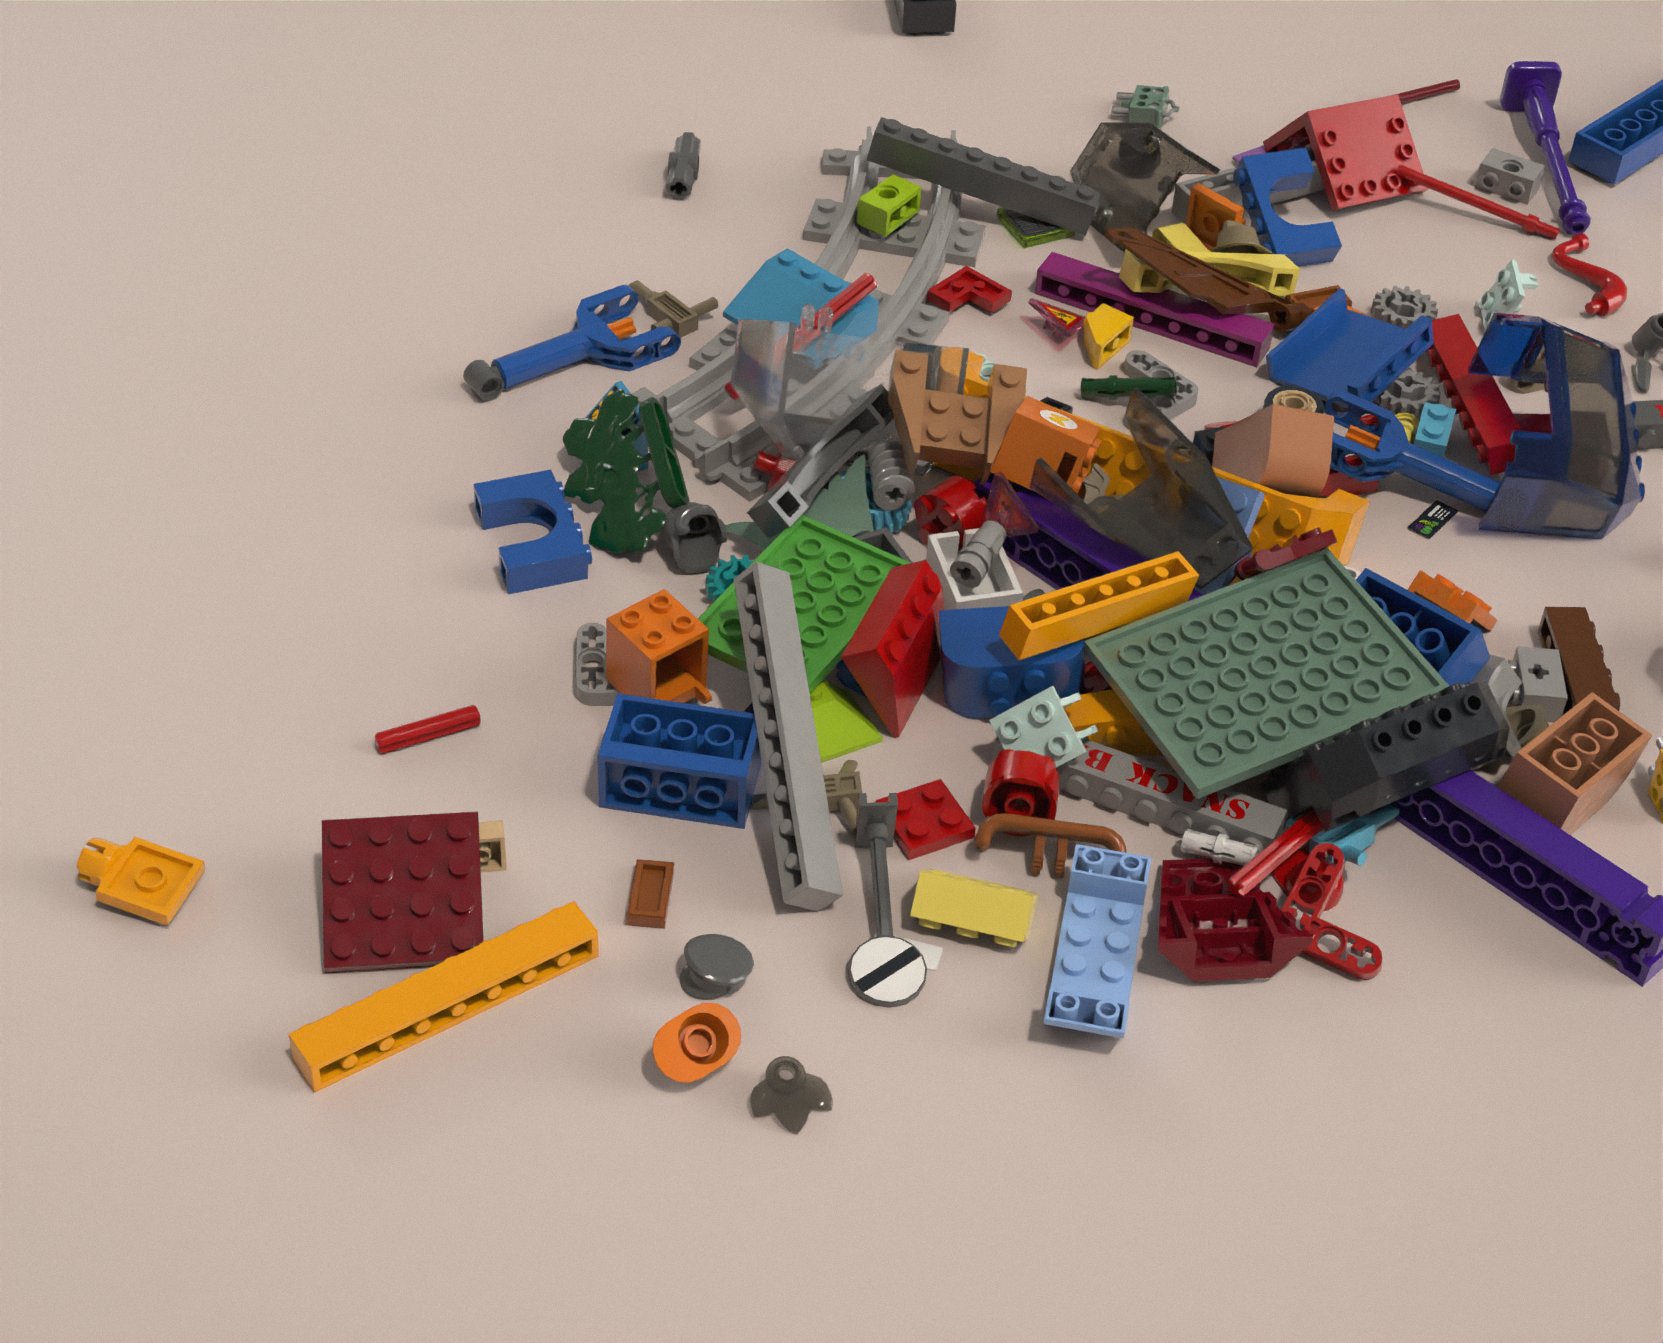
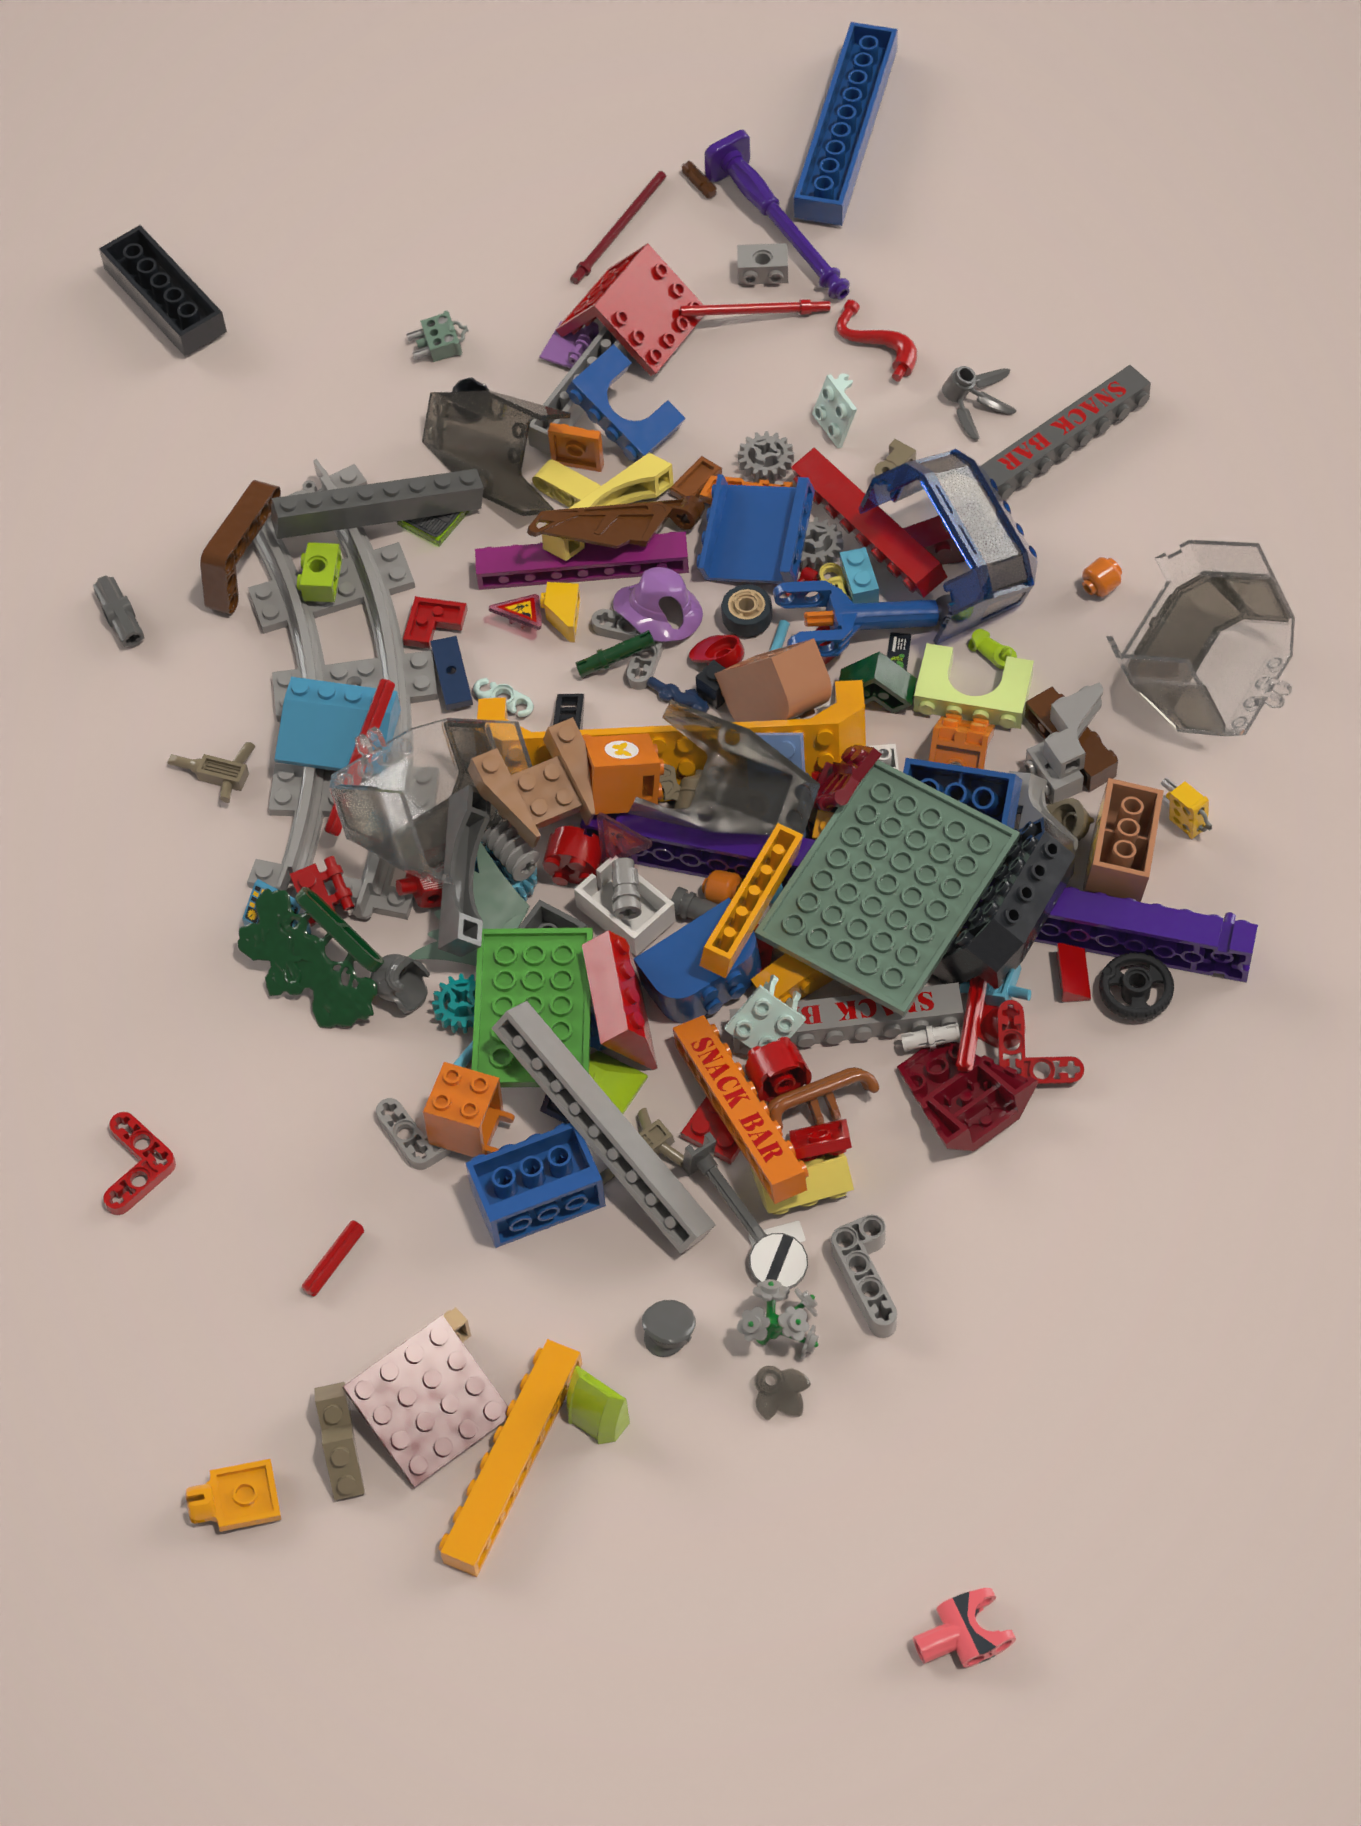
camera: 25 degrees left, 15 degrees up
(279, 883) = (339, 1441): none -> dark tan arch
(322, 568) = (146, 1166): none -> red beam
(541, 501) = (262, 1013): blue arch -> none
(571, 993) = (596, 1407): none -> lime slope
(588, 340) = (180, 838): blue piece -> none
(650, 893) = (583, 1296): dark orange tile -> none
(681, 419) = (314, 880): none -> red plate
(696, 1042) = (702, 1394): orange piece -> none
(809, 141) = (231, 542): none -> reddish brown beam
(842, 1016) = (788, 1324): none -> light grey plant
(952, 802) = (740, 1109): none -> orange brick
(958, 326) = (451, 673): none -> dark blue tile
(981, 995) = (868, 1279): none -> light grey beam
(1032, 880) = (821, 1139): none -> red plate
(1098, 941) = (900, 1163): light blue slope -> none
(1184, 364) = (642, 607): none -> medium lavender piece
(1238, 239) = (609, 460): dark tan piece -> none
(1396, 524) = (882, 681): none -> dark green brick
(1432, 874) = (1073, 973): none -> red slope
(1491, 100) = (699, 180): none -> reddish brown axle
(1501, 916) = (1136, 976): none -> black wheel
(1513, 604) = (1001, 707): none -> yellowish green arch
(1543, 564) = (990, 648): none -> lime piece
(1585, 638) = (1071, 718): none -> light grey arch

